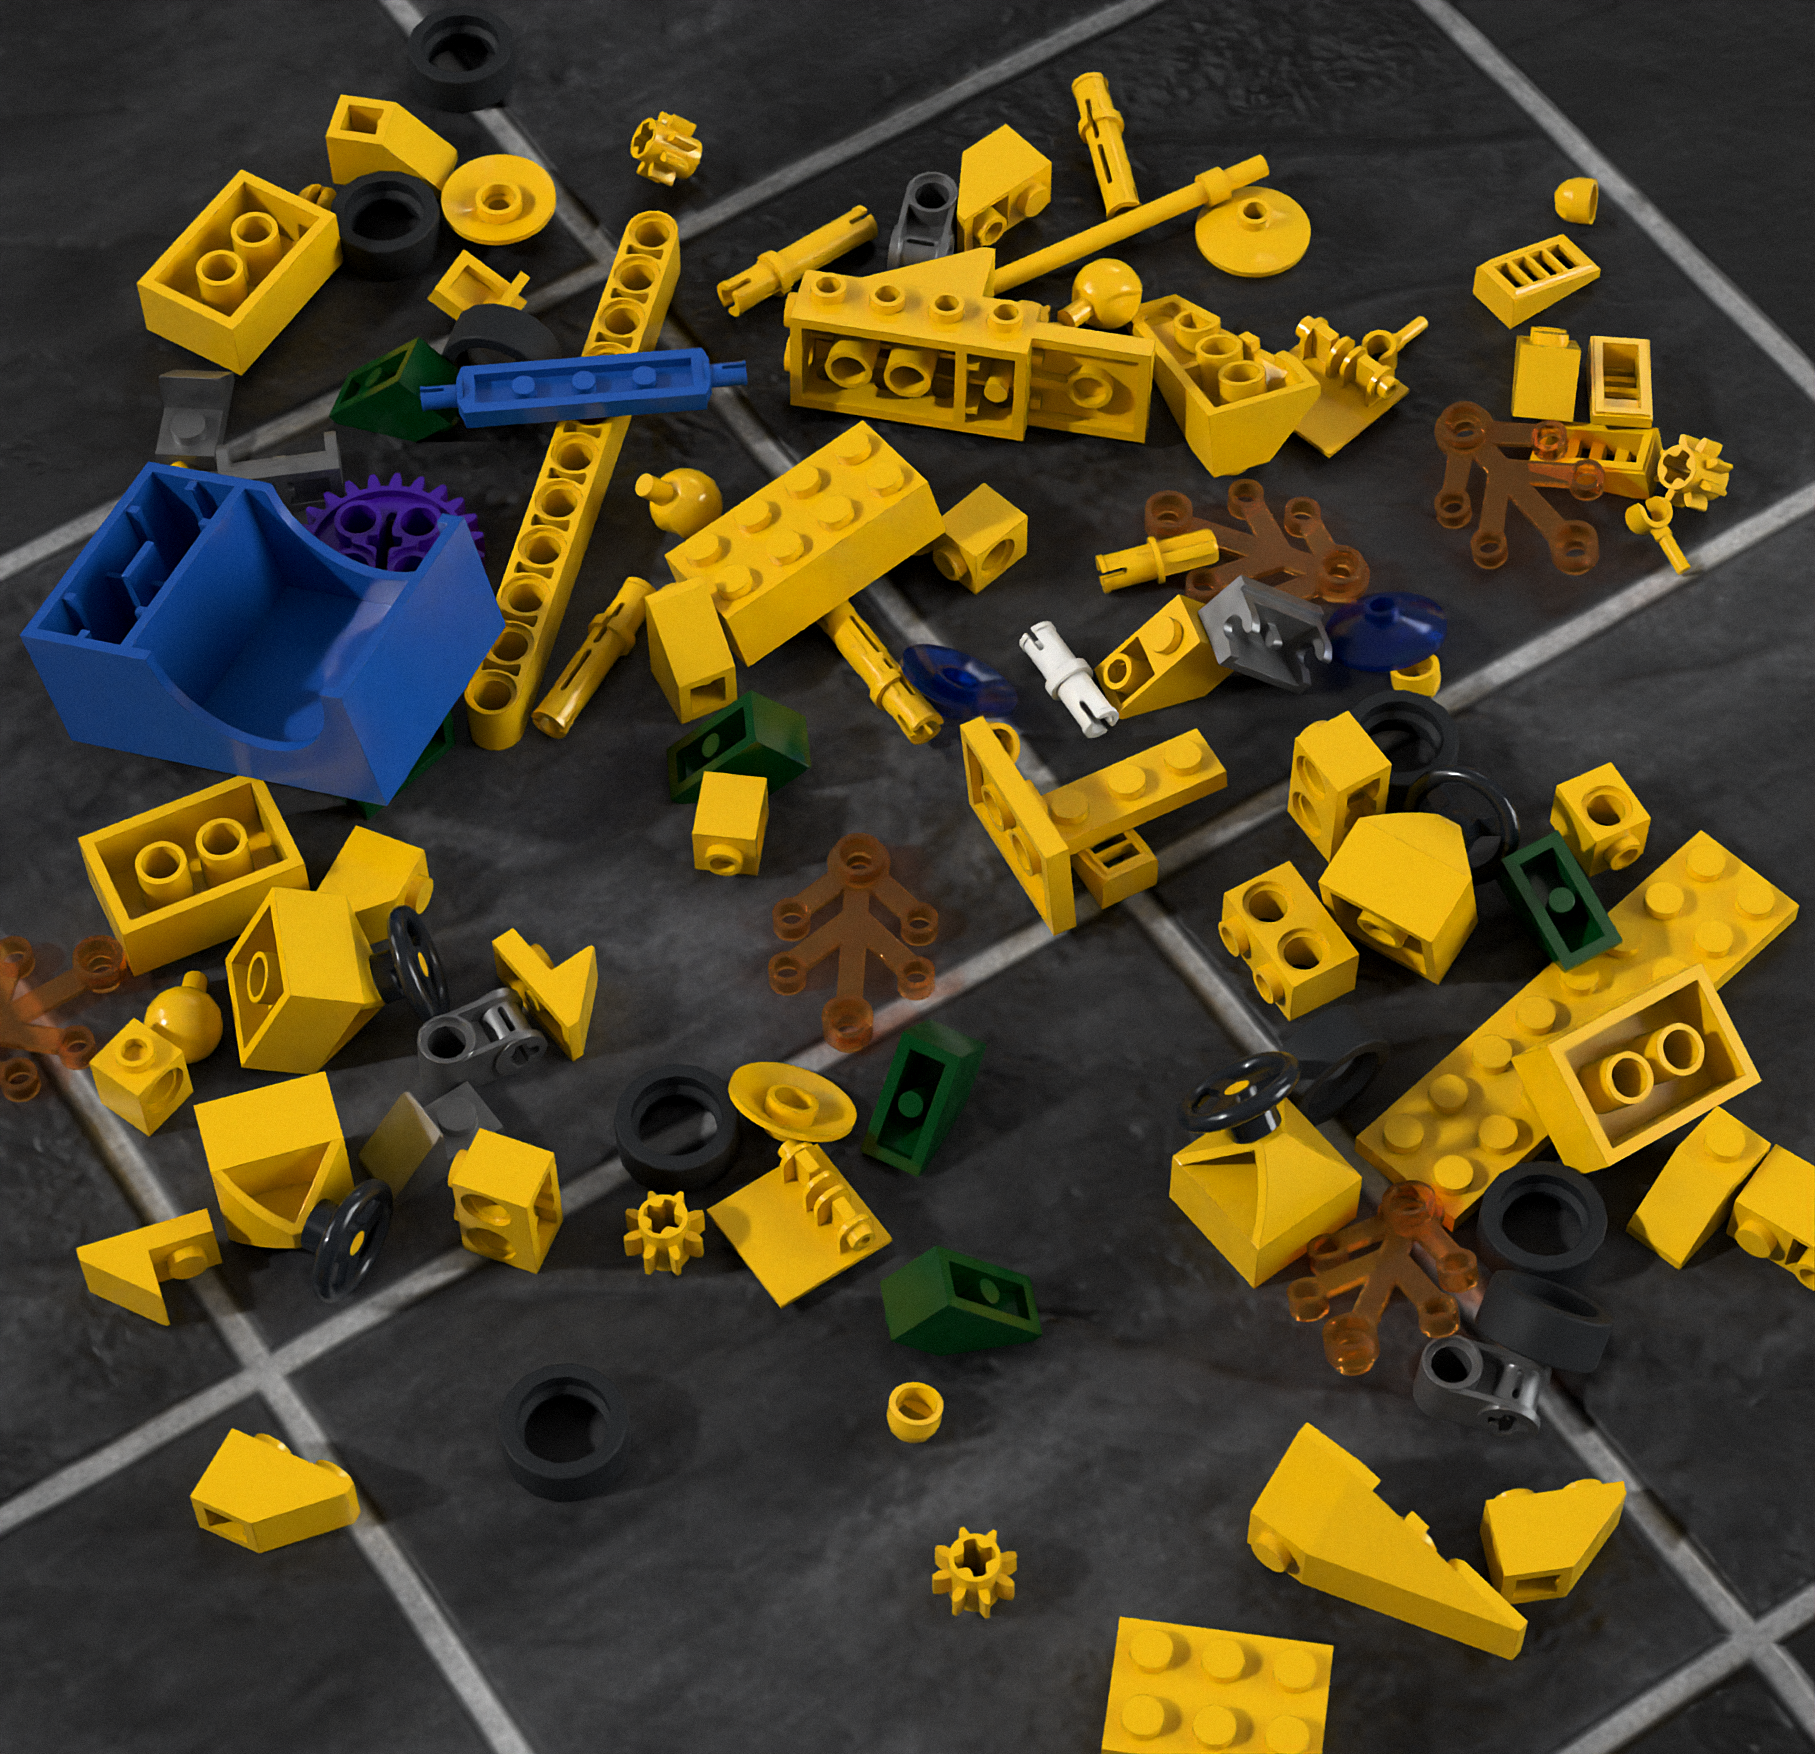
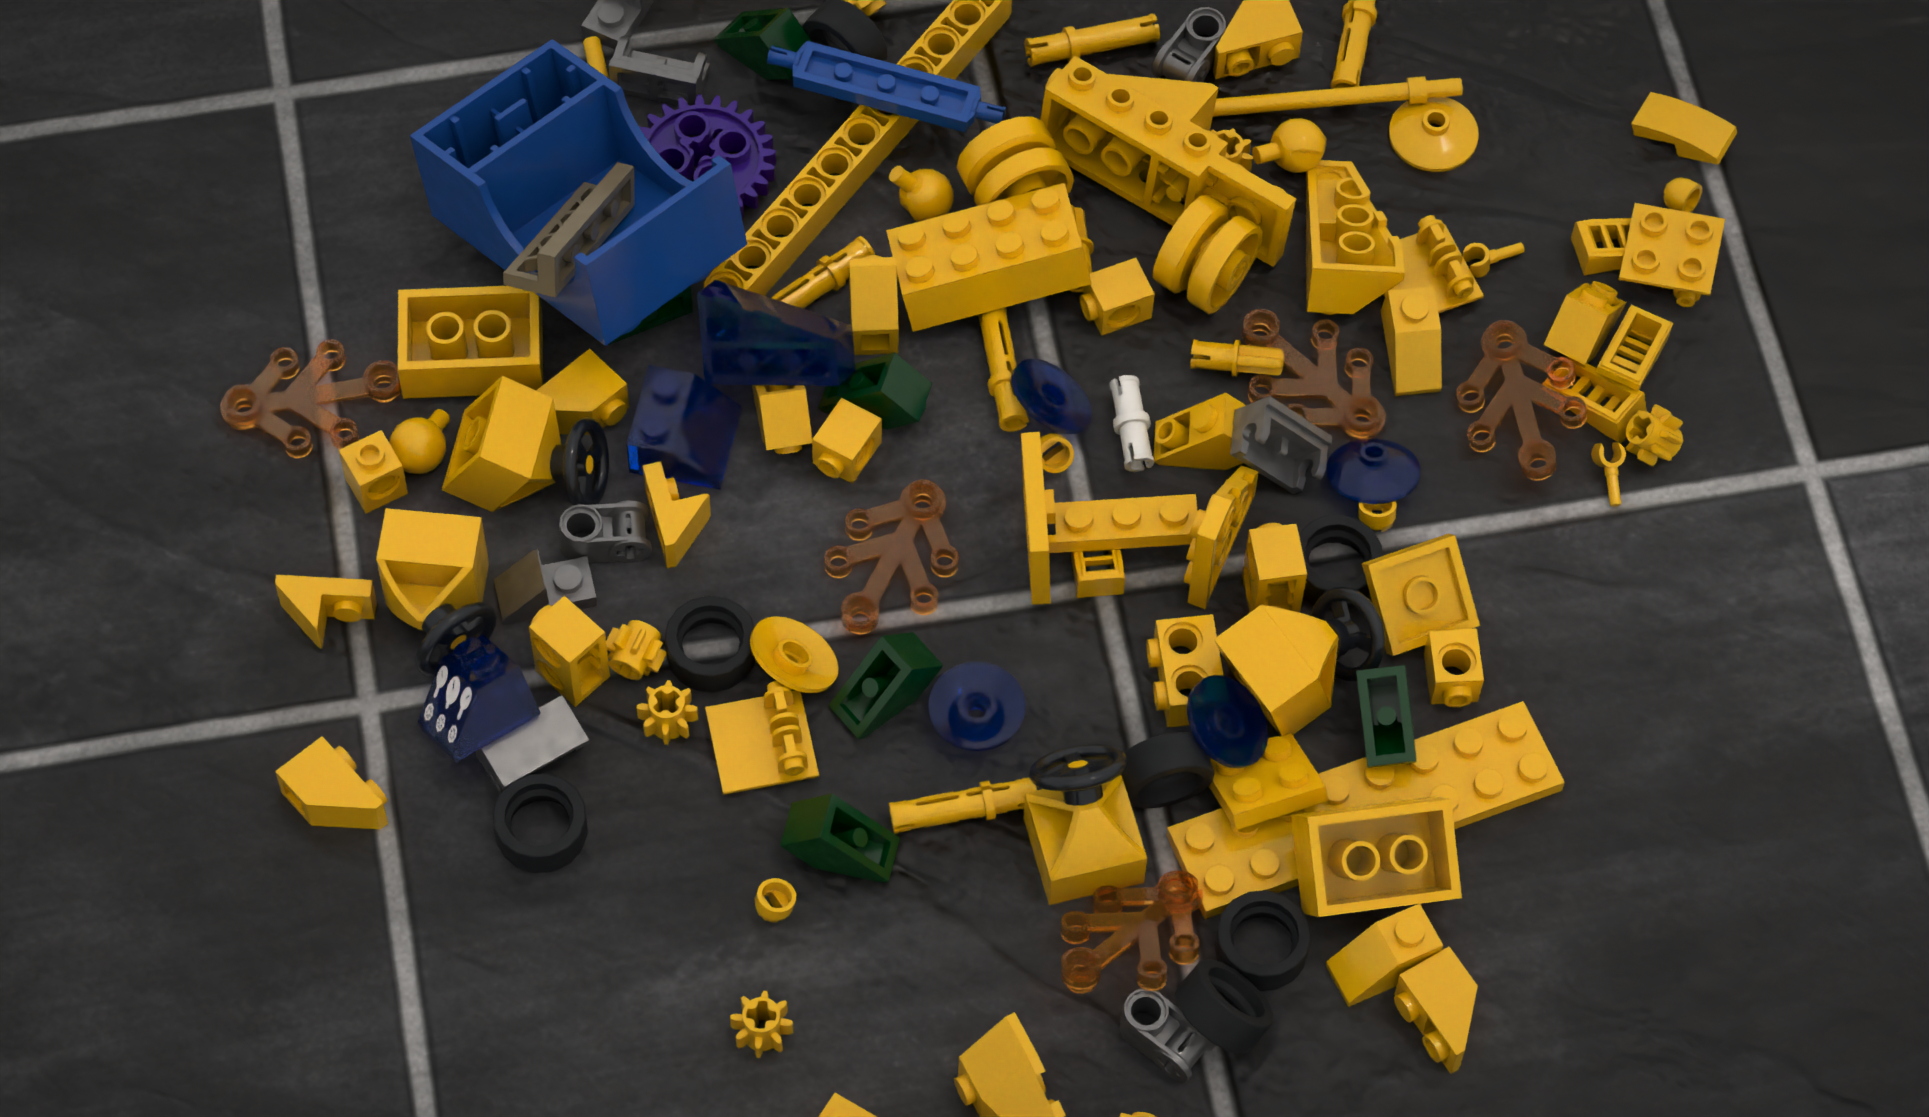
camera: 20 degrees right, 5 degrees up
(293, 694) = (576, 228): none -> dark tan fence
(413, 1305) = (475, 698): none -> clear blue slope
(507, 1338) = (533, 744): none -> flat silver hinge
(516, 876) = (684, 427): none -> clear blue slope
(585, 734) = (769, 341): none -> clear blue wedge
(590, 1170) = (635, 650): none -> yellow gear
(631, 815) = (783, 417): none -> yellow slope
(779, 422) = (1012, 160): none -> yellow wheel
(1056, 1057) = (982, 688): none -> clear blue dish
(1060, 447) = (1207, 254): none -> yellow wheel
(1113, 1192) = (960, 805): none -> yellow pin
(1249, 767) = (1216, 532): none -> yellow plate
(1357, 462) = (1413, 340): none -> yellow slope
(1376, 977) = (1227, 721): none -> clear blue dish
(1453, 1035) = (1269, 788): none -> yellow plate
(1523, 741) = (1420, 592): none -> yellow plate
(1556, 124) = (1692, 129): none -> yellow slope
(1605, 262) = (1672, 251): none -> yellow hinge

